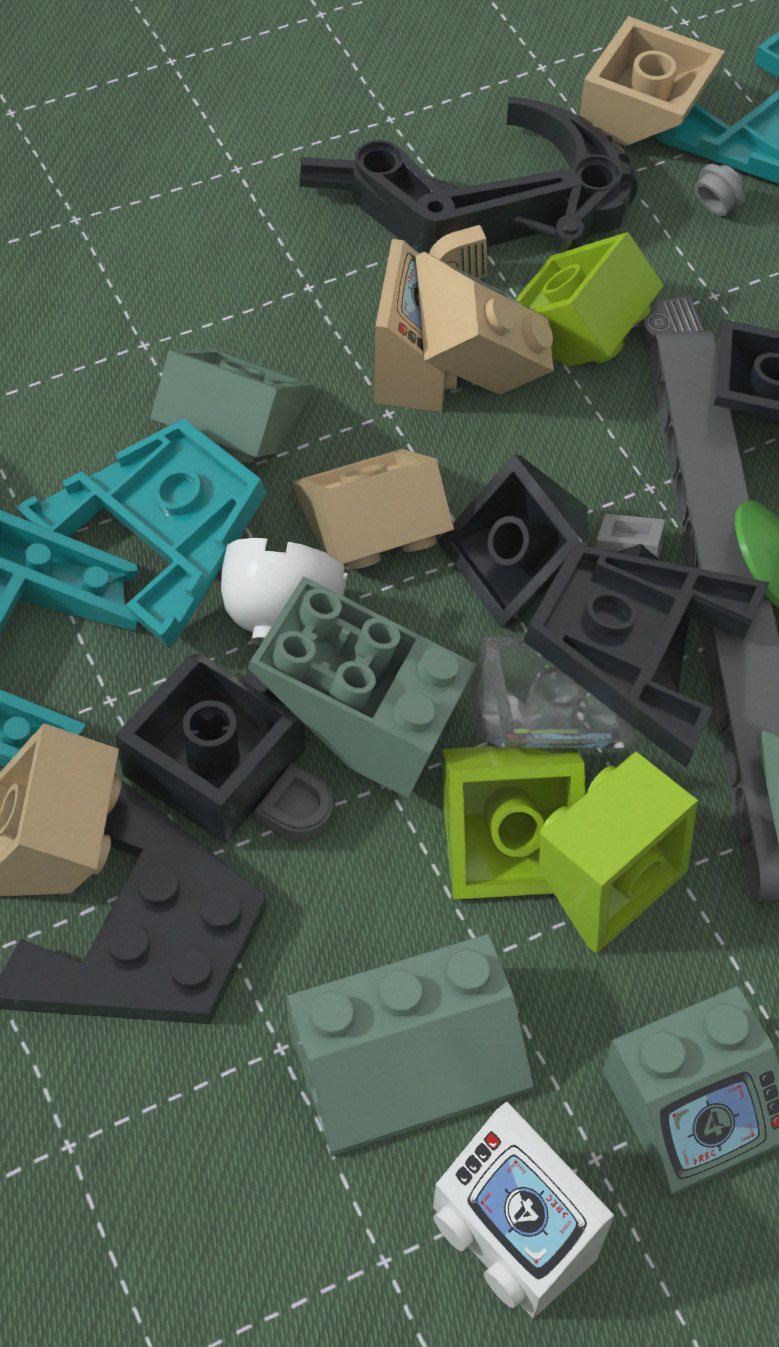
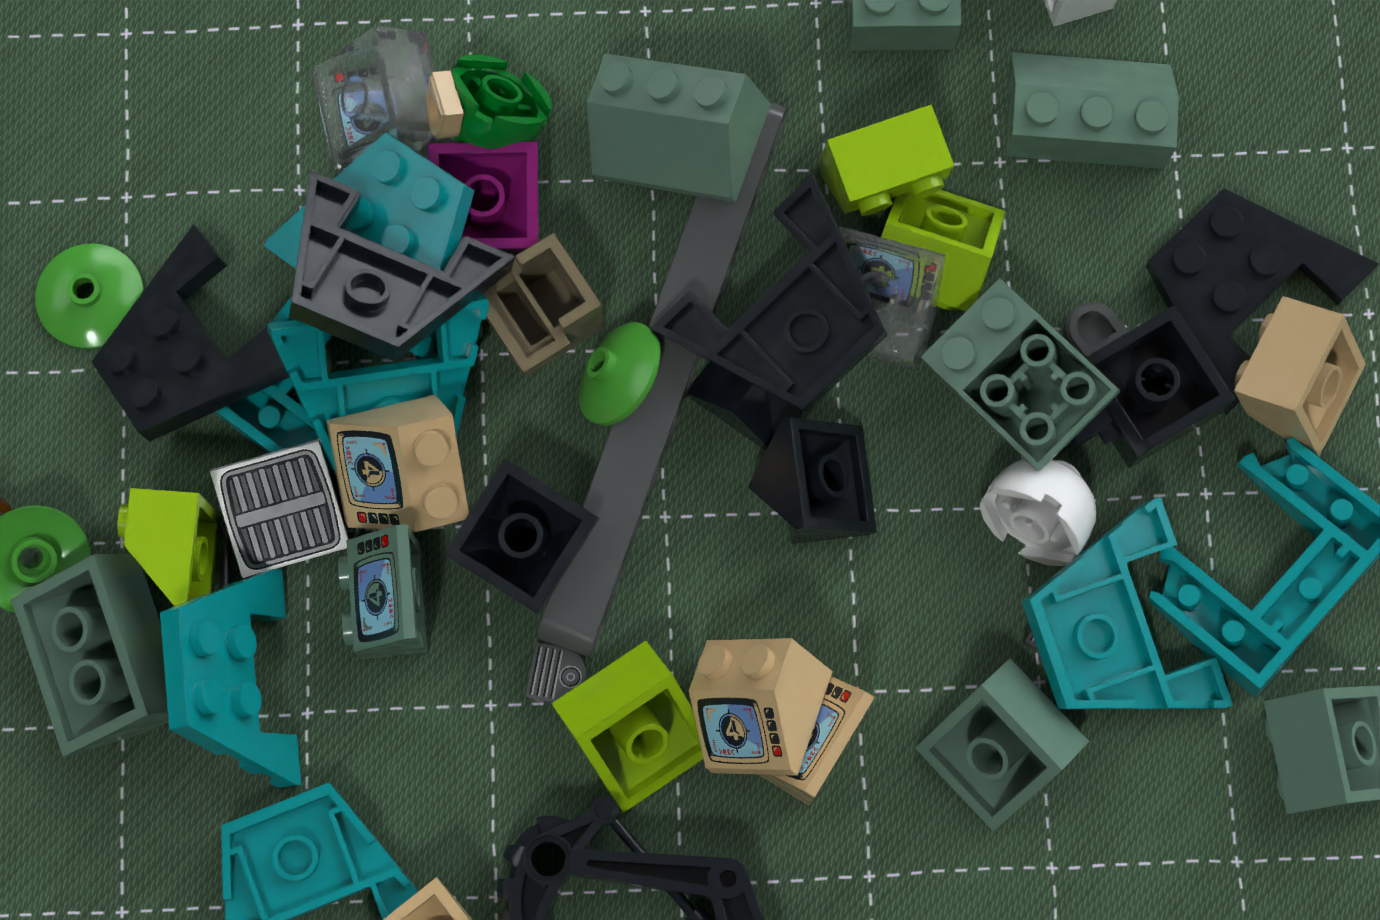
camera: 155 degrees left, 20 degrees up
(376, 507) = (925, 579): tan slope -> none
(464, 251) = (721, 831): tan tile -> none
(623, 532) = (721, 450): light grey plate -> none
(720, 189) = (423, 814): light grey plate -> none

